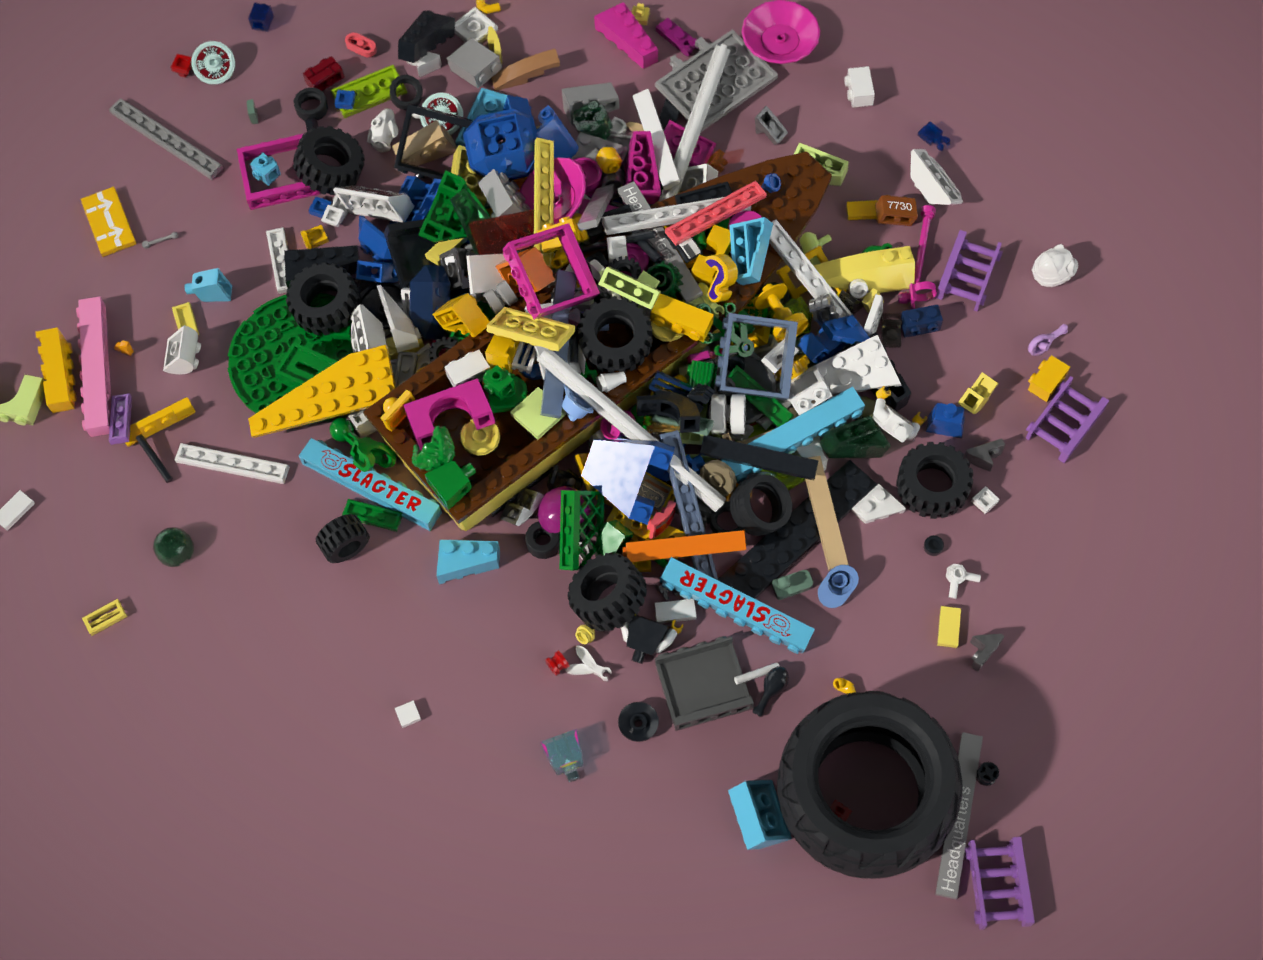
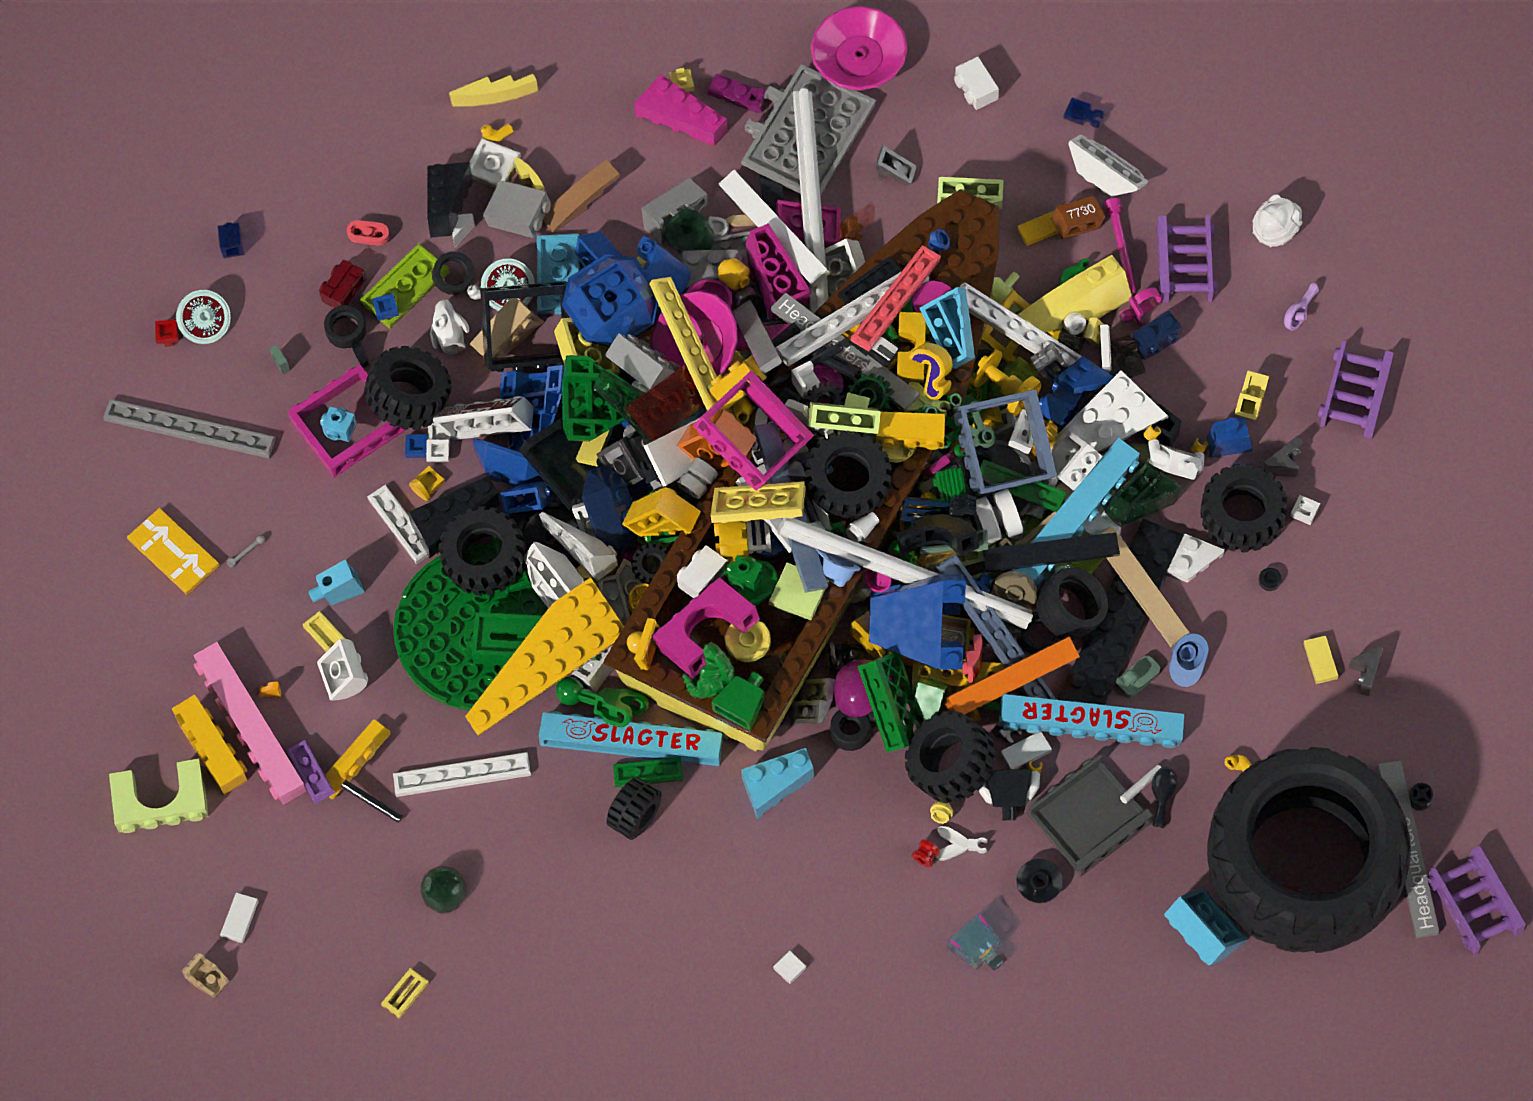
camera: 20 degrees left, 0 degrees up
(957, 574) = (1307, 601): white piece -> none
(1048, 378) = (1319, 350): yellow brick -> none

